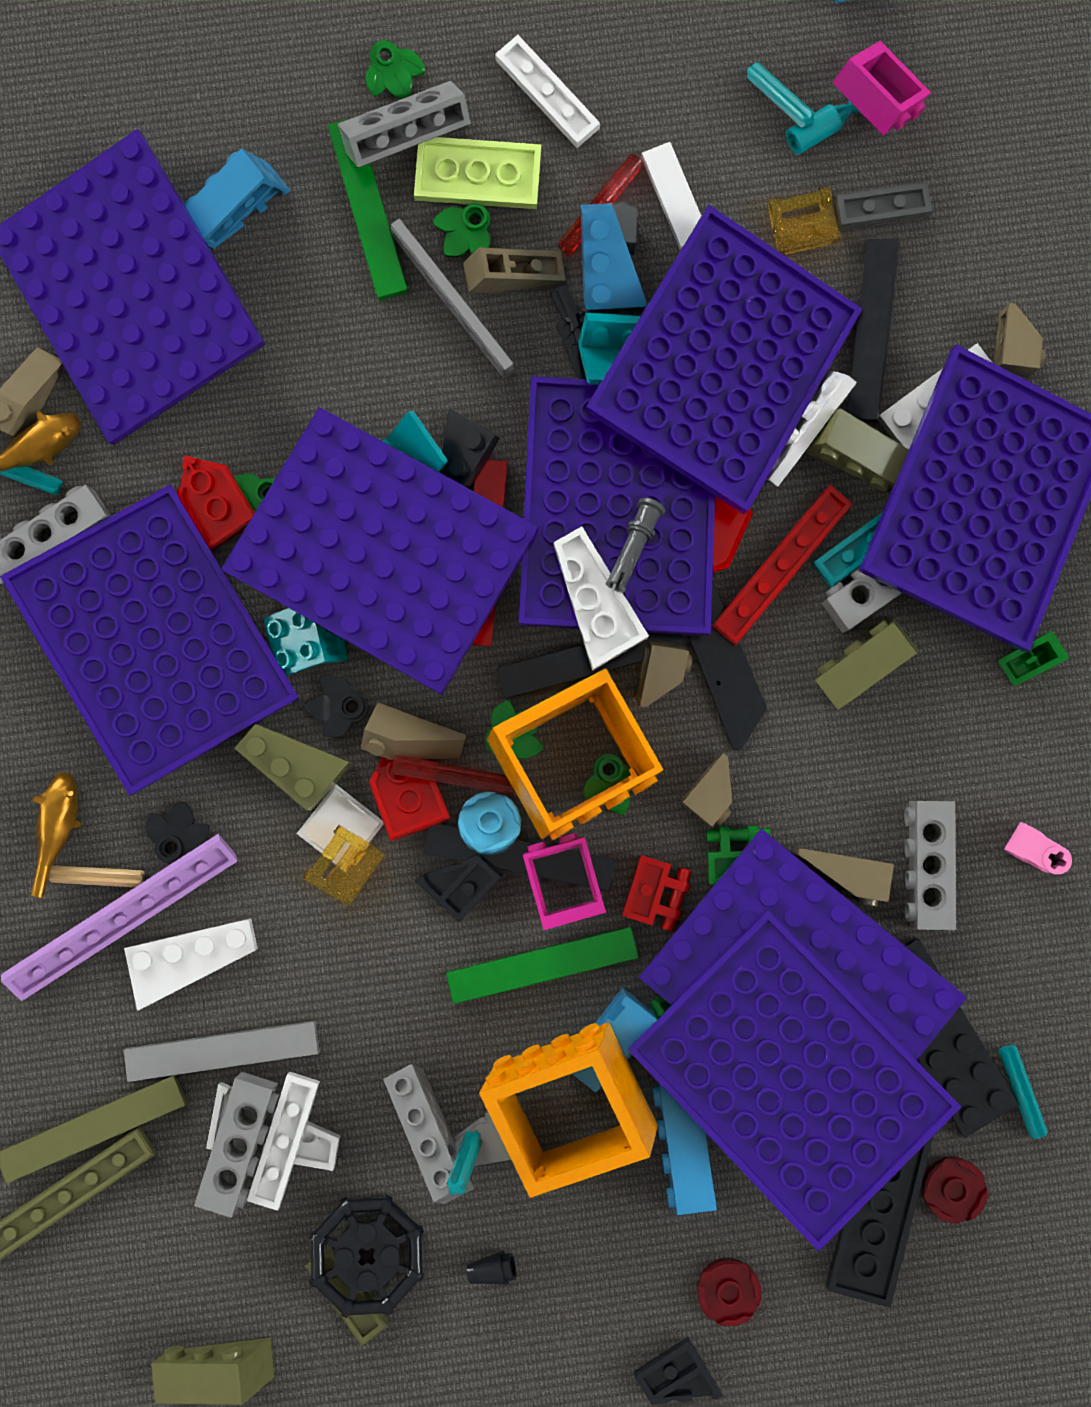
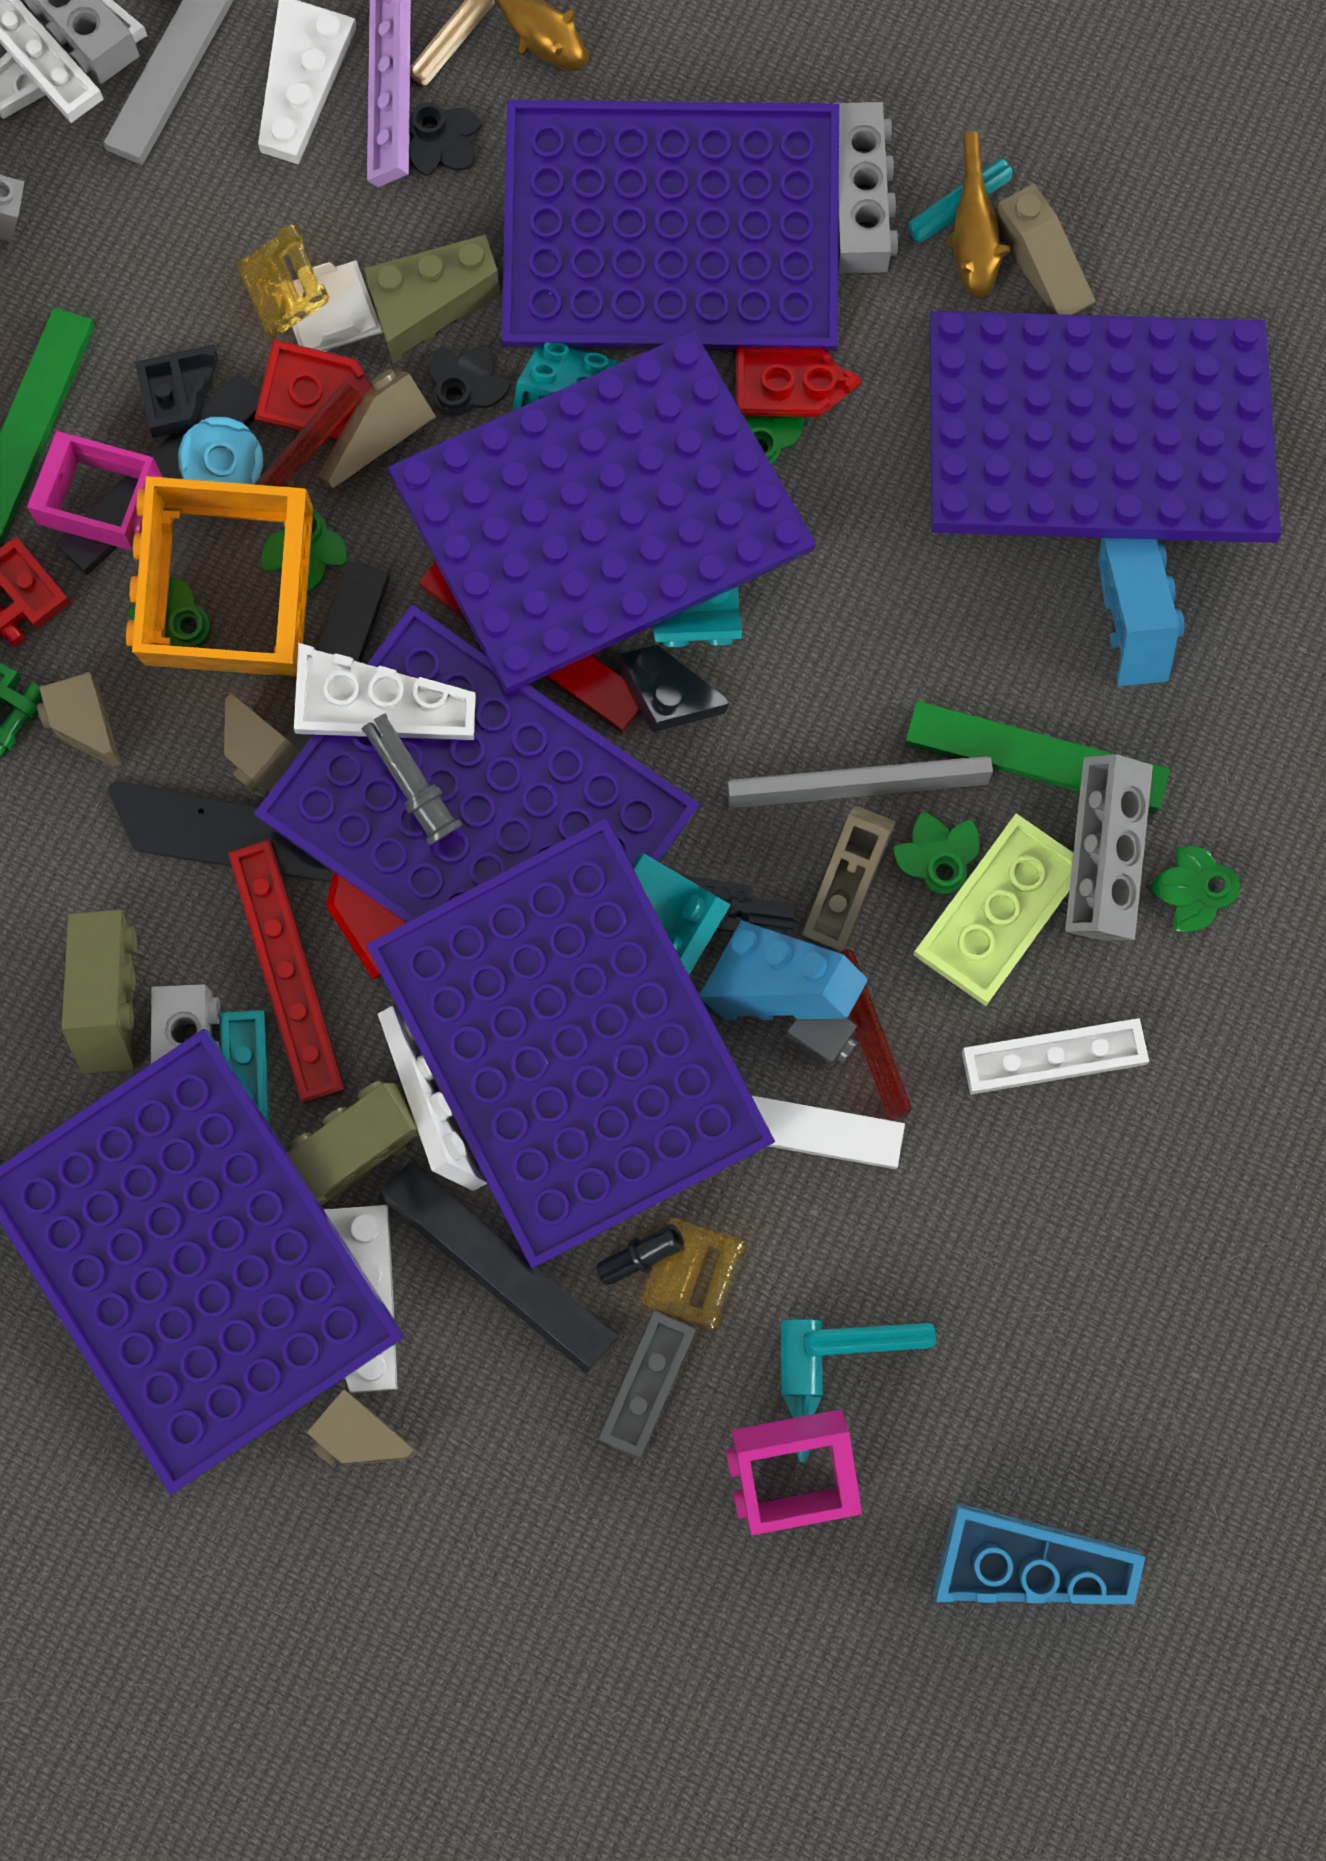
camera: 130 degrees right, 10 degrees down
(816, 251) = (641, 1255): none -> black axle

